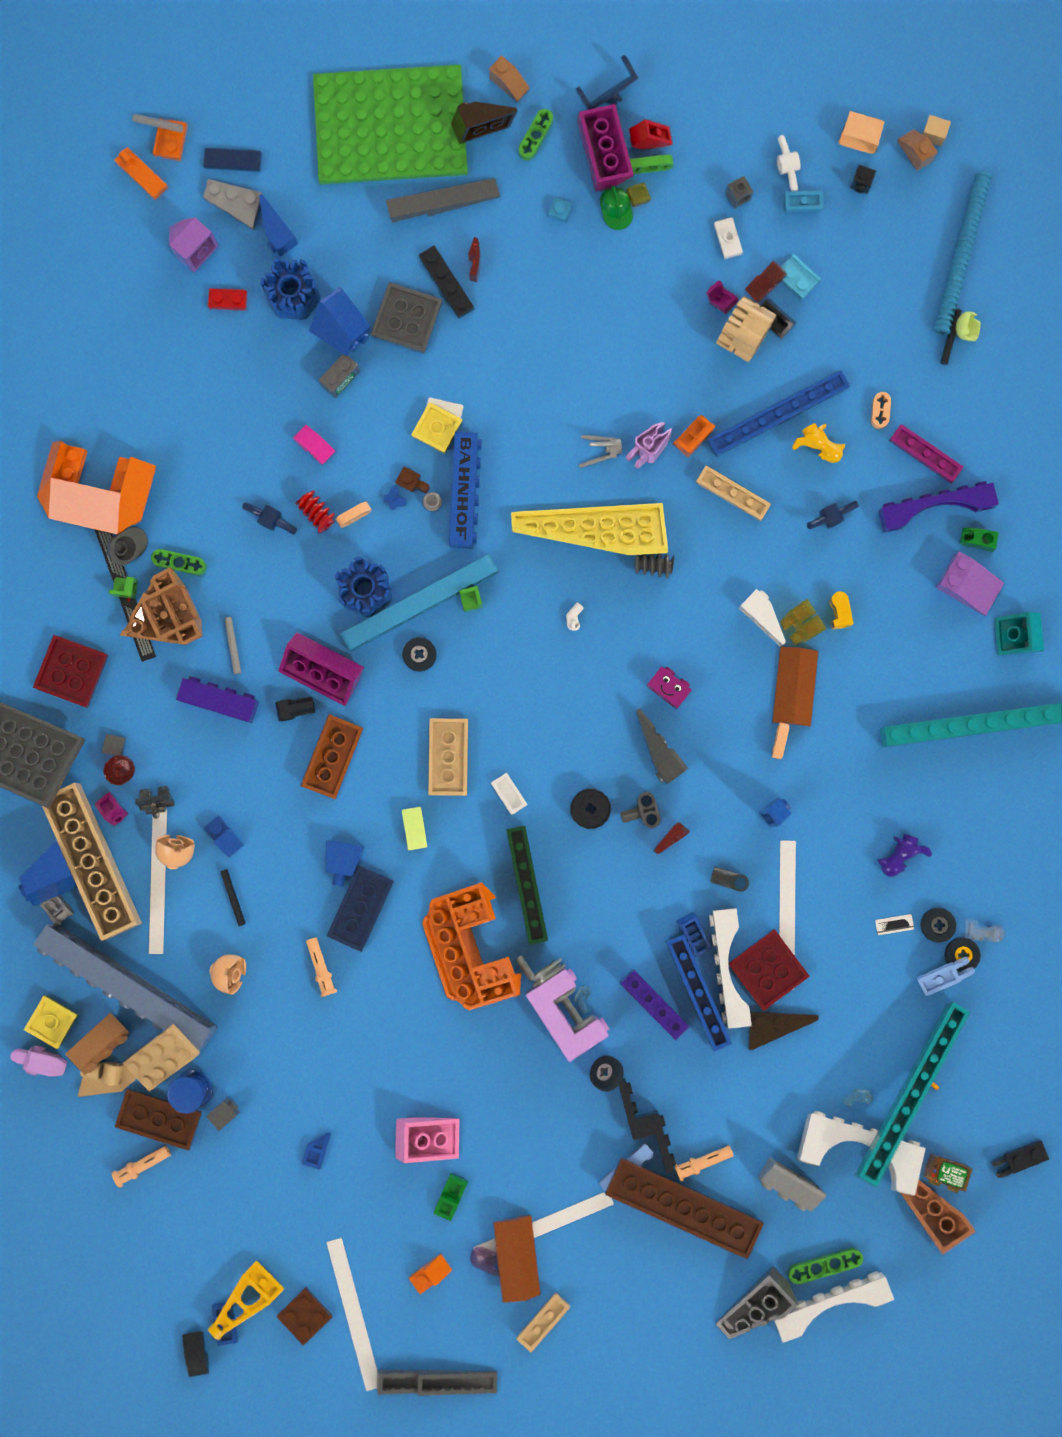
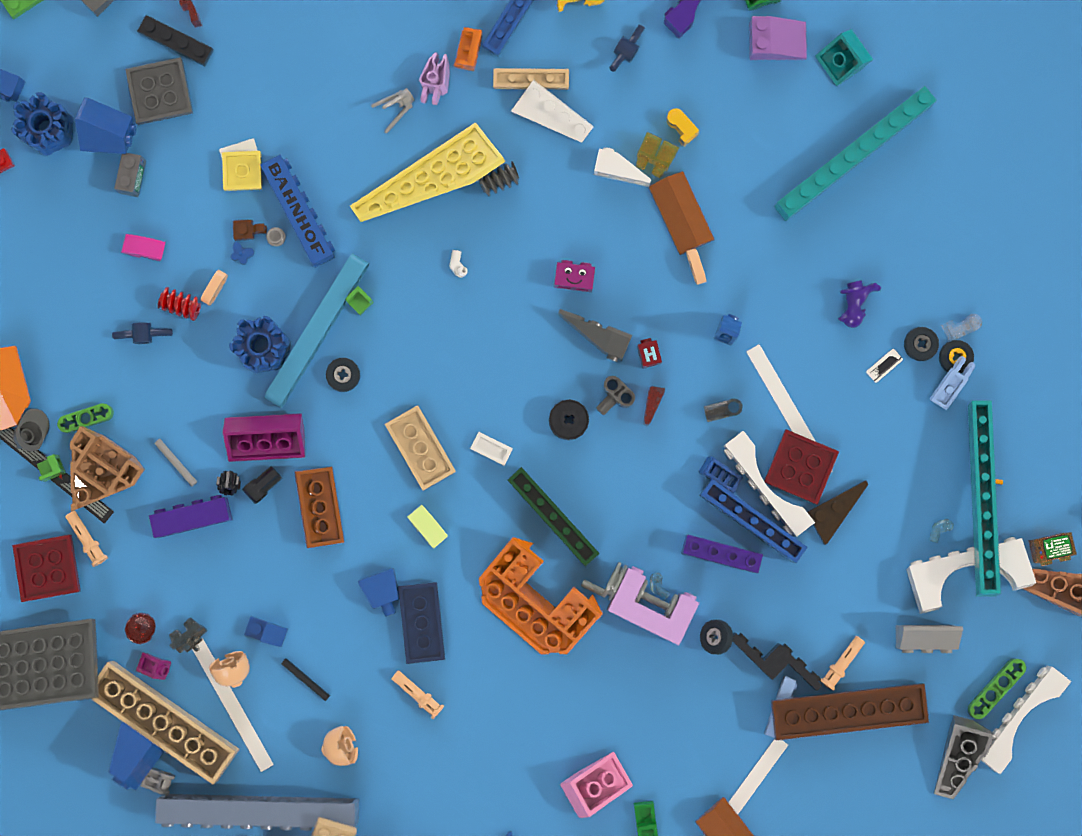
camera: 35 degrees left, 0 degrees up
(113, 745) = (122, 610): dark grey tile -> none
(118, 675) = (89, 545): none -> light nougat pin
(266, 690) = (228, 483): none -> black gear
(694, 792) = (649, 353): none -> dark red brick
(731, 529) = (546, 109): none -> white wing

